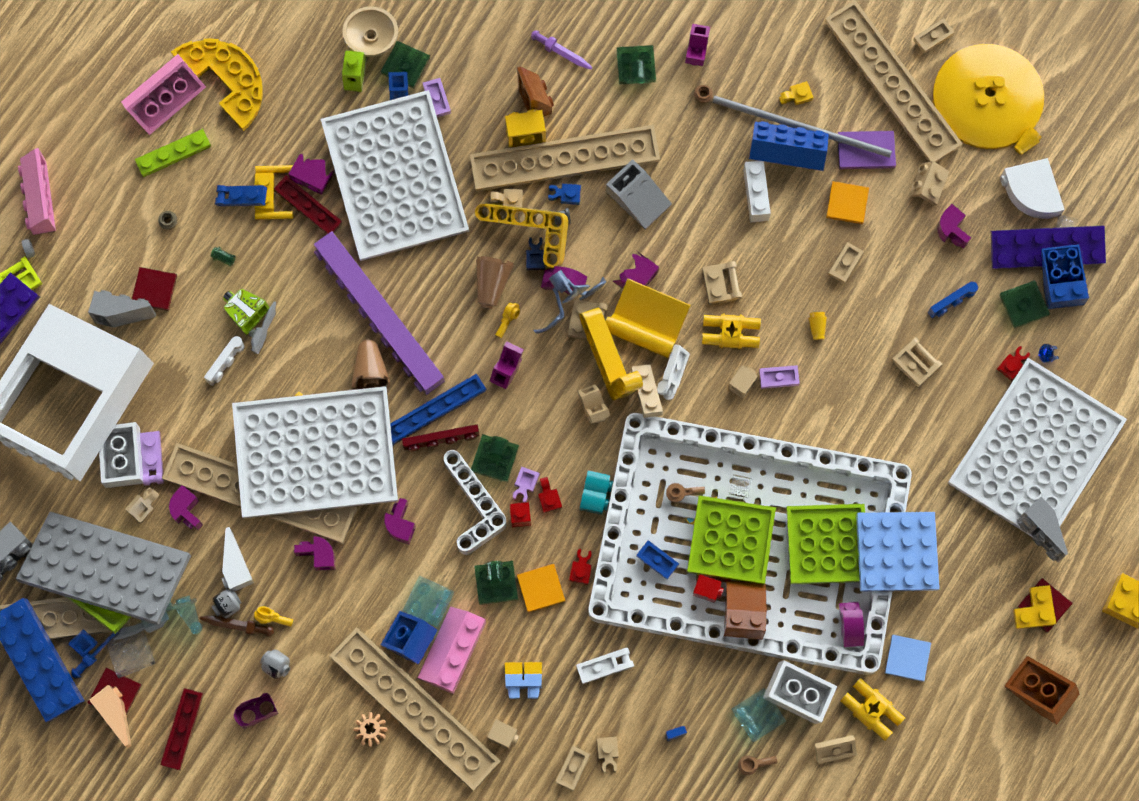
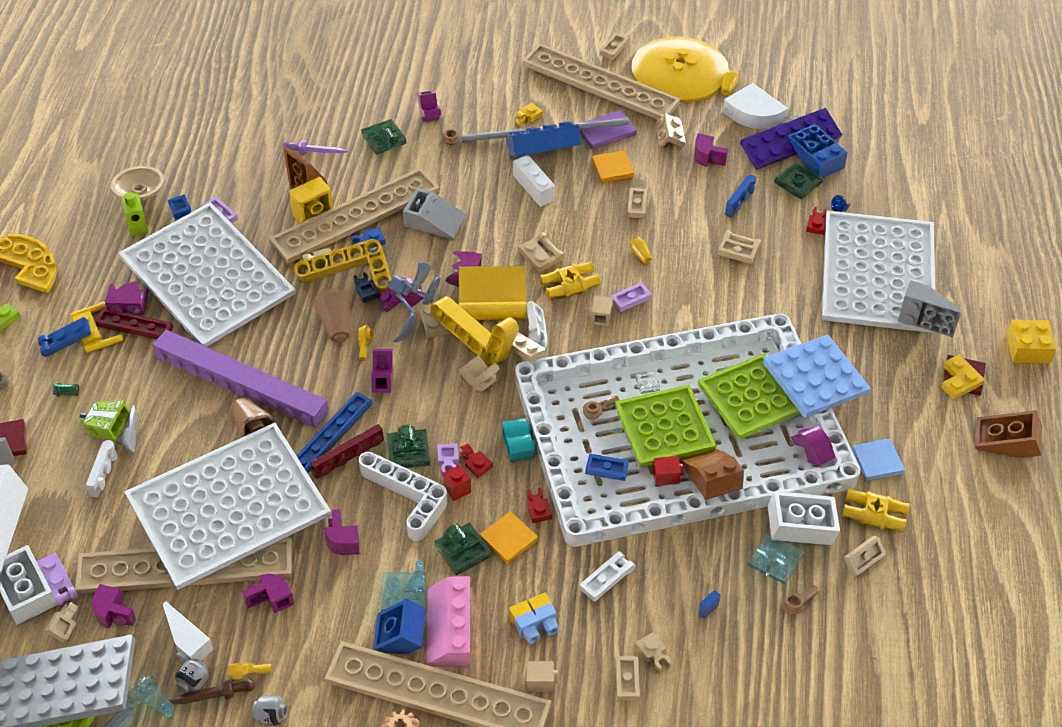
camera: 25 degrees left, 25 degrees down
(406, 59) = (191, 192): clear green plate -> none

